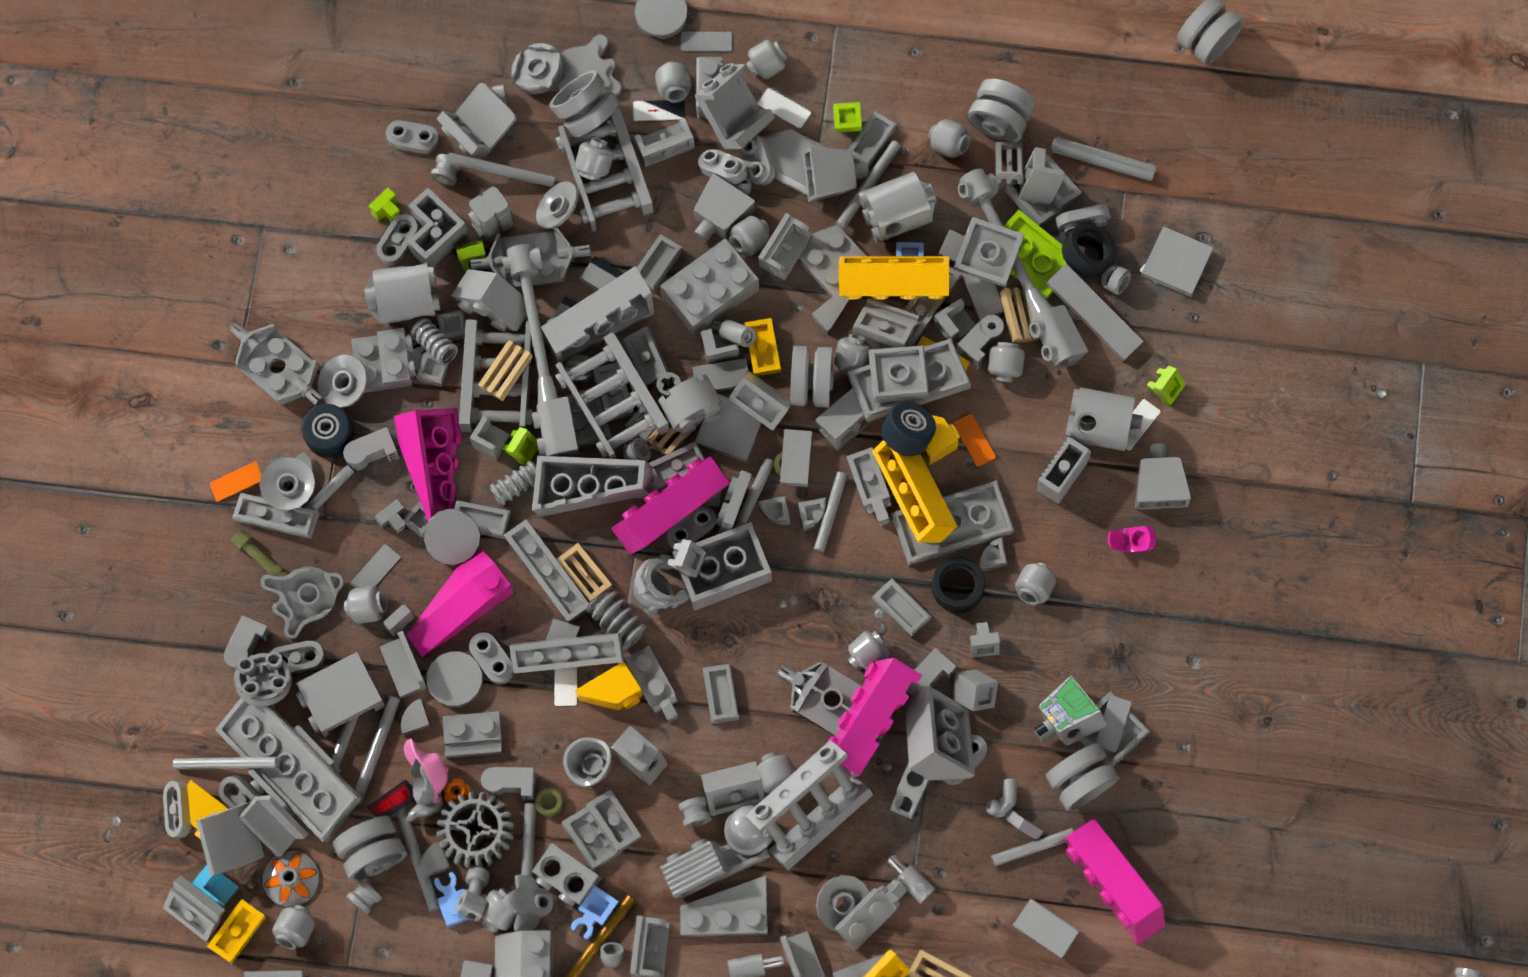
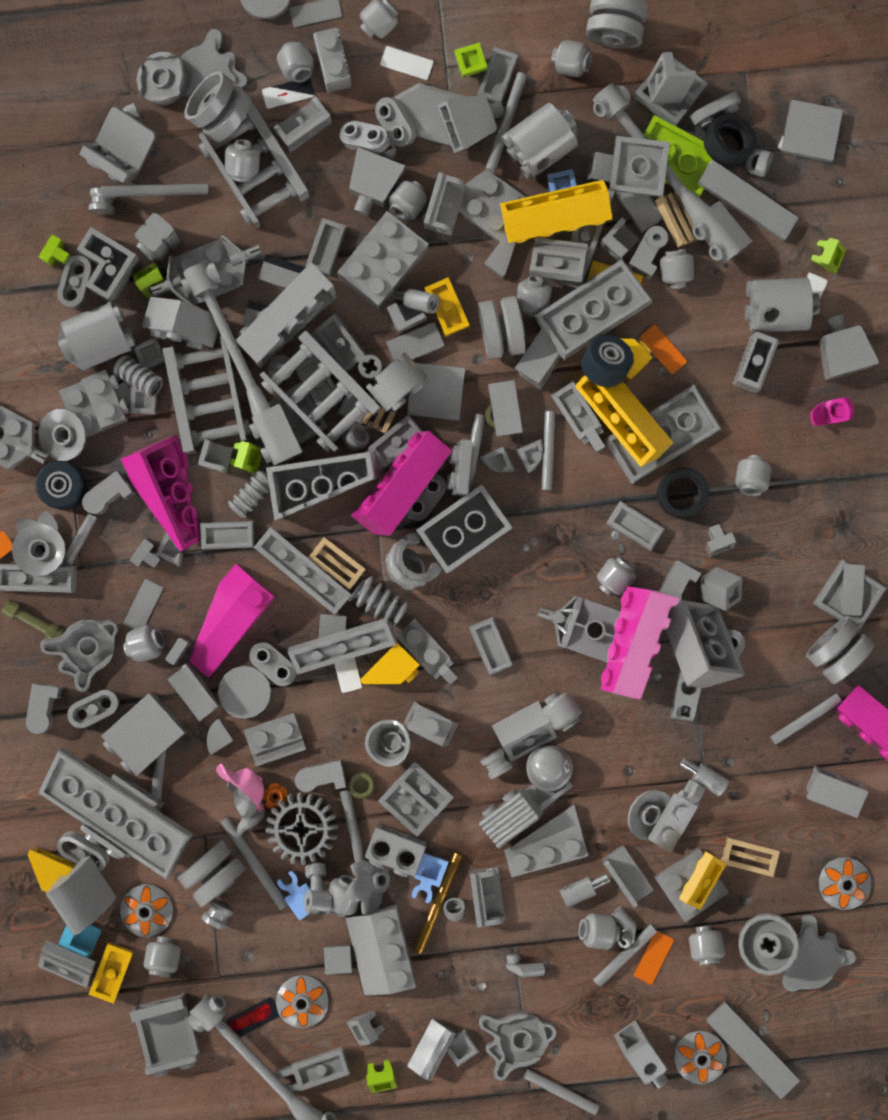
camera: 25 degrees left, 15 degrees up
(176, 809) = (24, 876): light grey plate -> none
(226, 763) = (57, 824): light grey bar -> none
(262, 679) = (69, 740): light grey tile -> none
(272, 824) = (114, 872): light grey panel -> none
(376, 747) = (190, 775): light grey bar -> none
(392, 800) = (219, 820): sticker -> none
(411, 137) = (59, 175): light grey plate -> none
(433, 861) = (271, 865): light grey tile -> none
(451, 536) = (206, 560): light grey tile -> none
(497, 365) = (215, 414): tan tile -> none
(557, 205) = (217, 213): light grey dish -> none
(688, 558) = (434, 535): light grey tile -> none
(732, 107) = (361, 77): light grey panel -> none
(760, 400) = (459, 360): light grey panel -> none
(823, 819) = (611, 744): light grey fence -> none
(898, 374) = (583, 307): light grey tile -> none
(993, 556) = (707, 456): light grey tile -> none
(1006, 802) = (773, 684): light grey arm -> none
(1008, 174) = (637, 84): light grey tile -> none
(1023, 824) = (792, 701): light grey tile -> none
(1069, 714) = (813, 593): torso -> none
(1103, 158) = (720, 44): light grey axle -> none

